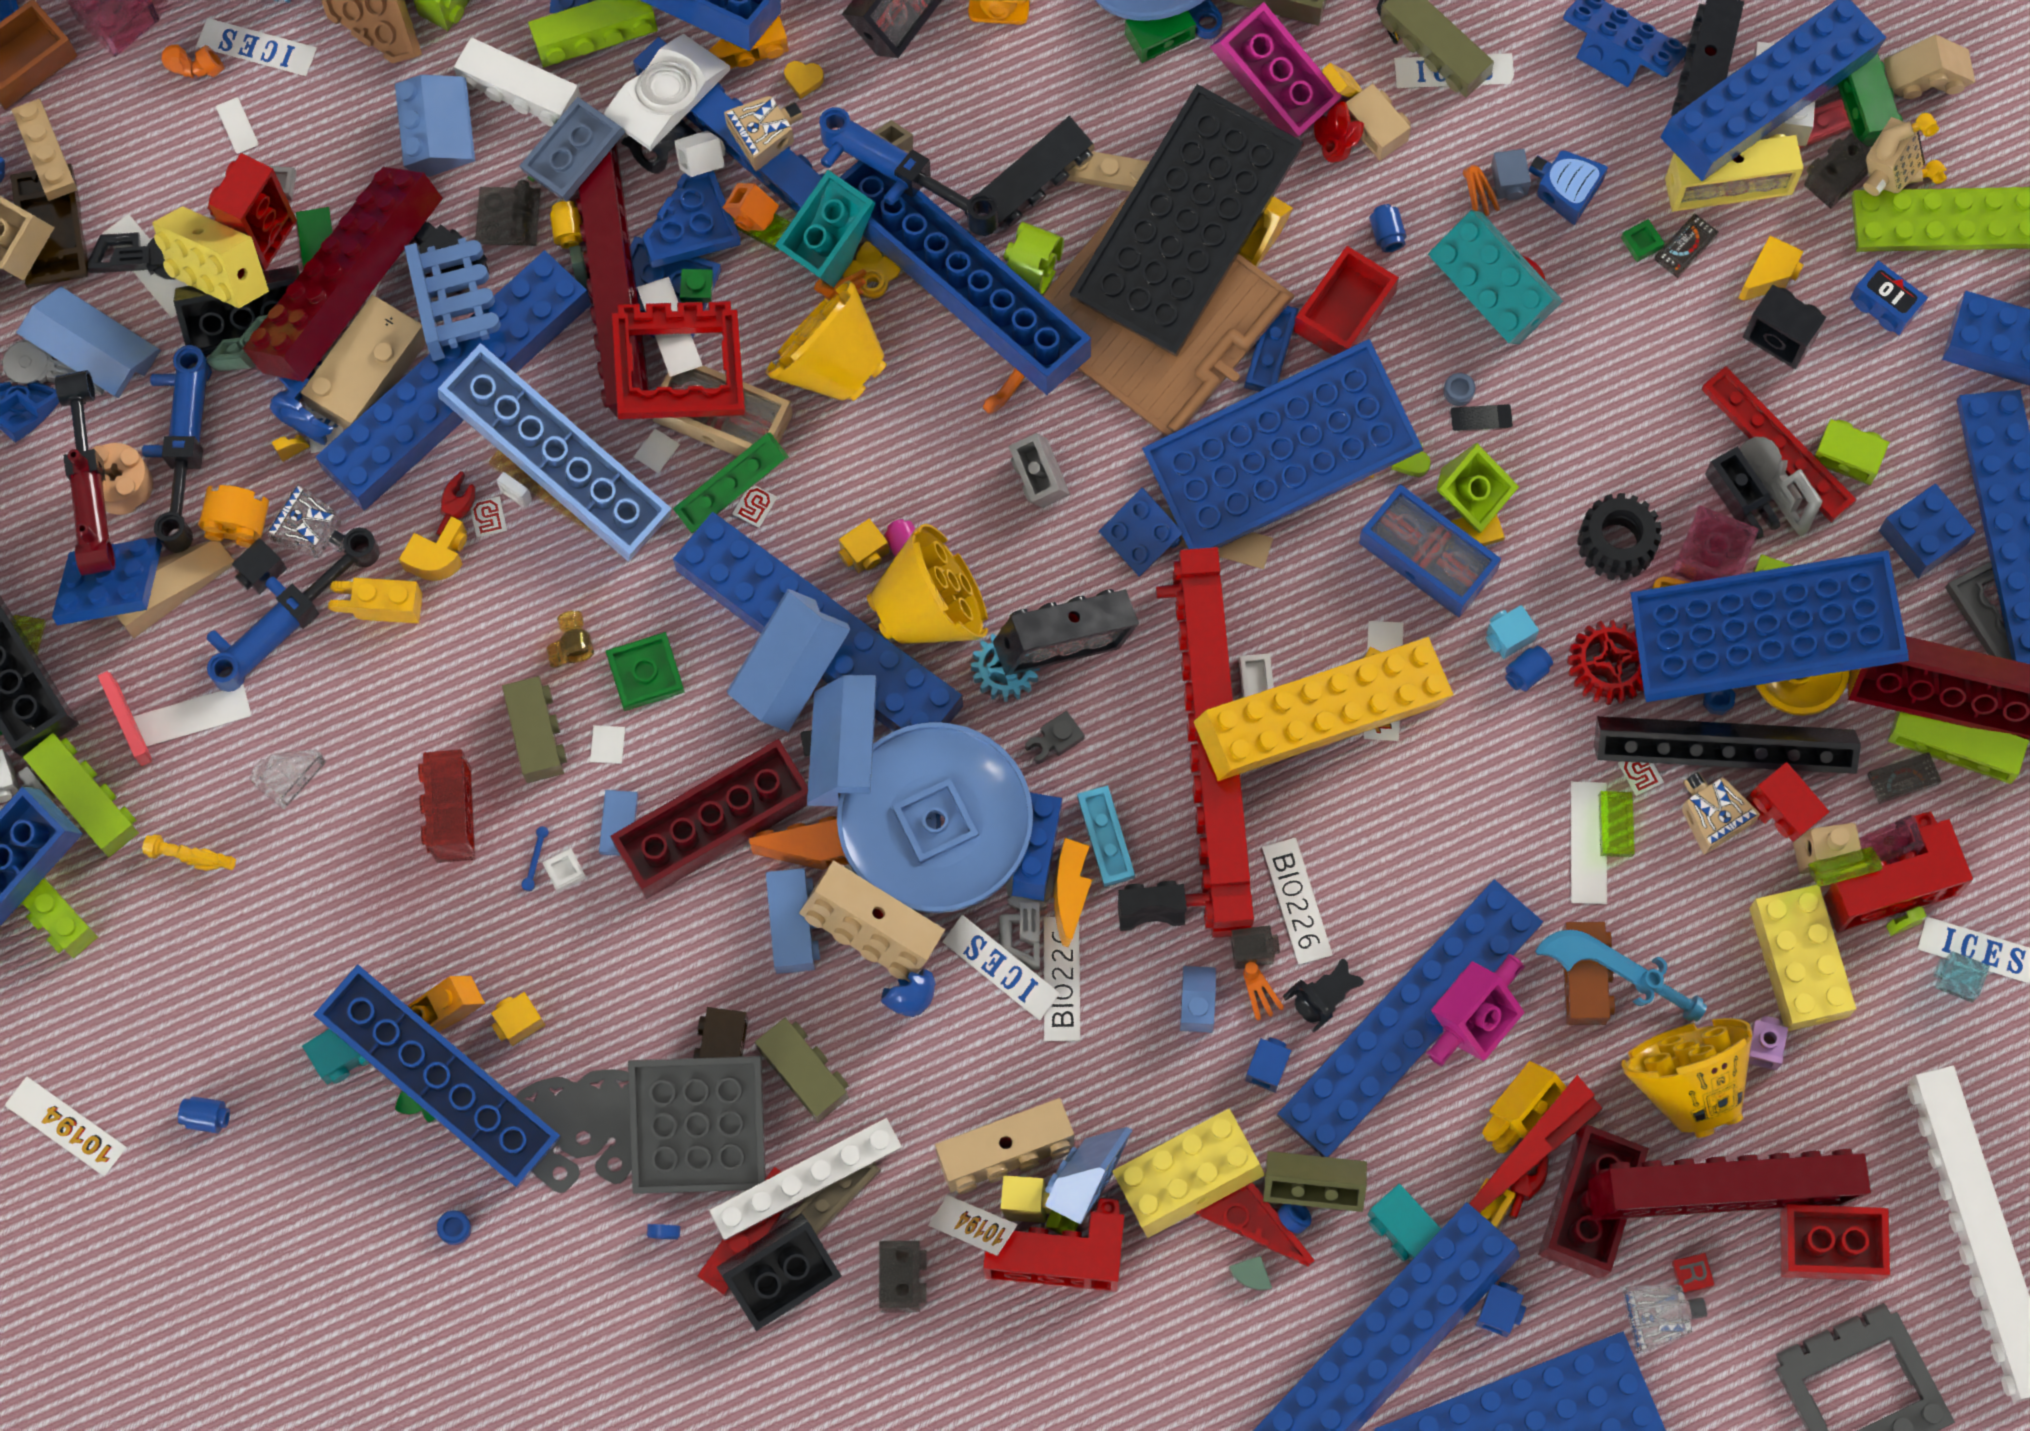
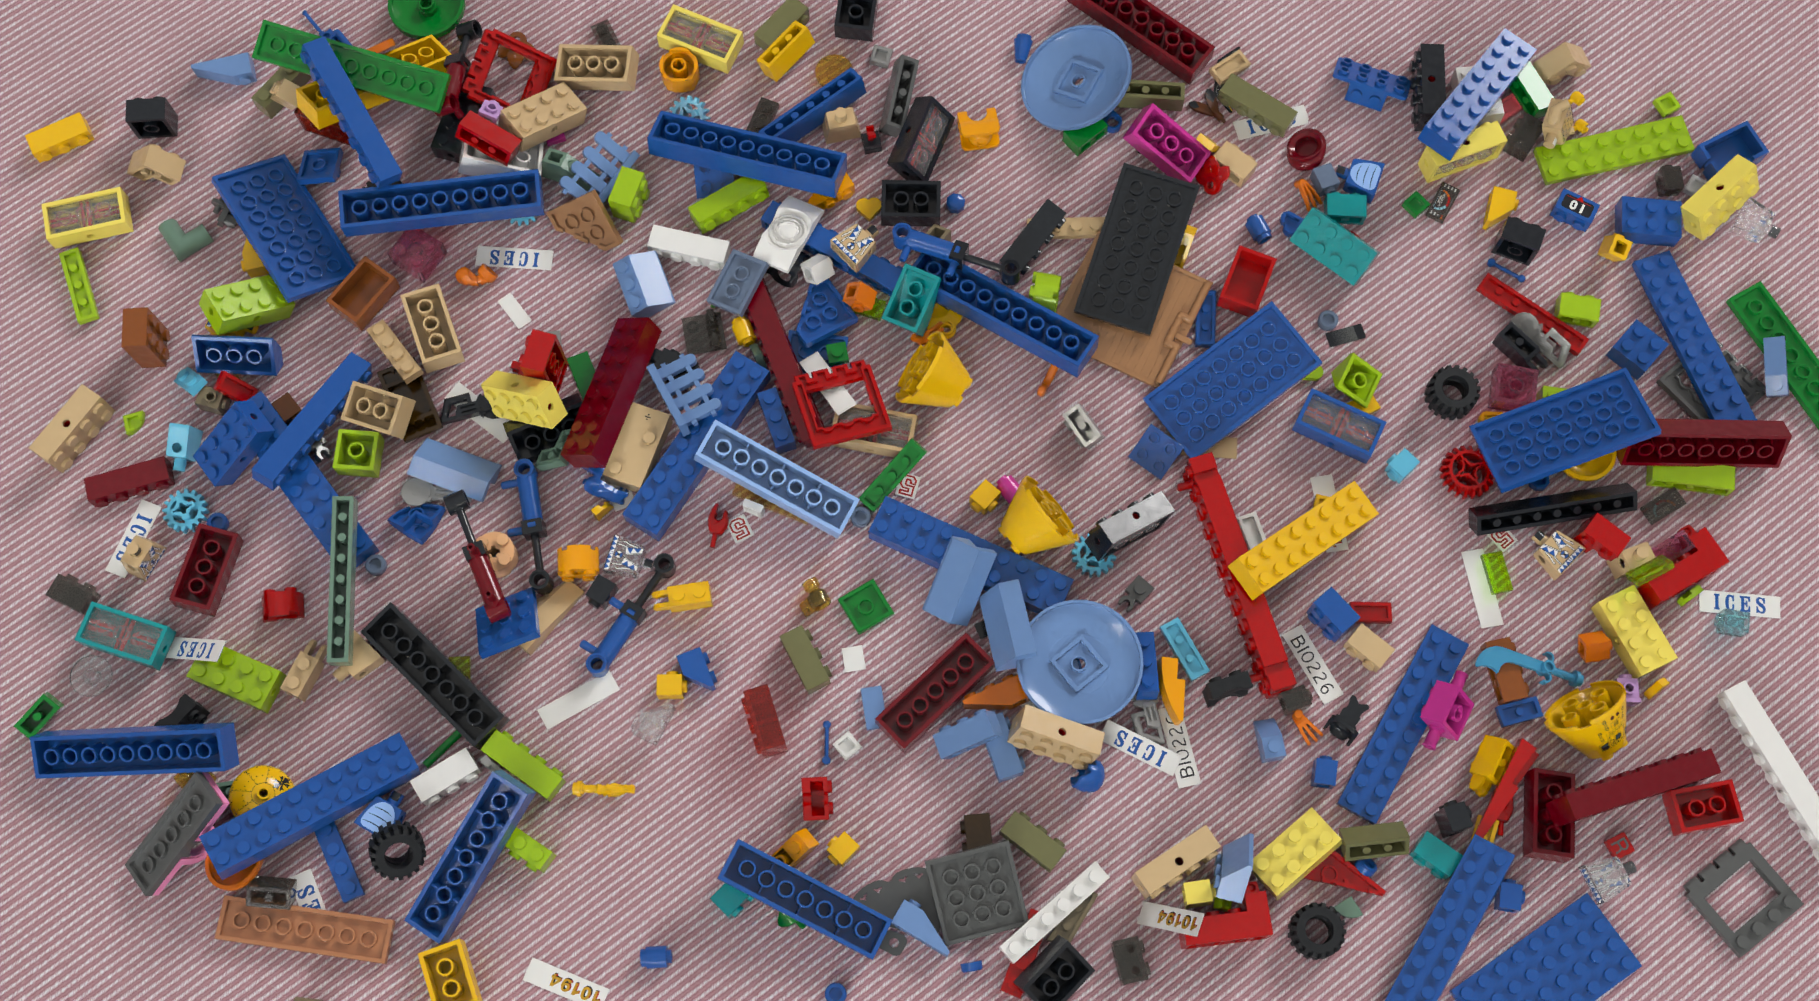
camera: 15 degrees left, 0 degrees up
(107, 126) = (432, 328): none -> tan brick
(125, 718) = (539, 709): coral tile -> none
(325, 725) = (671, 685): none -> yellow brick
(368, 707) = (695, 668): none -> blue slope
(435, 560) = (715, 563): yellow brick -> none
(497, 935) = (816, 798): none -> red cylinder
(580, 367) = (776, 420): none -> blue brick
(596, 1150) = (916, 924): none -> medium blue slope
(656, 450) = (836, 463): white sticker -> none
(671, 537) = (860, 517): none -> sand blue tile
(742, 889) = (967, 734): none -> medium blue brick
(866, 82) = (910, 202): none -> black brick
(935, 97) = (955, 203): none -> blue tile
(1198, 1266) = (1329, 918): none -> black tyre
(1341, 832) = (1332, 615): none -> blue brick
(1362, 32) = (1210, 109): none -> reddish brown piece
(1386, 894) = (1368, 648): none -> tan brick
(1405, 842) = (1373, 612): none -> red tile
(1439, 225) = (1290, 222): none -> blue tile
(1444, 1173) = (1453, 818): none -> black brick
(1494, 122) = (1306, 149): none -> dark red piece
(1528, 668) = (1418, 486): blue brick -> none
(1531, 223) = (1346, 207): none -> teal brick
(1592, 1039) = (1519, 711): none -> blue plate
(1734, 965) = (1594, 646): none -> orange brick
(1738, 353) = (1491, 262): none -> blue hinge
(1815, 1048) = (1657, 687): none -> yellow tile
(1934, 367) = (1615, 247): none -> yellow brick

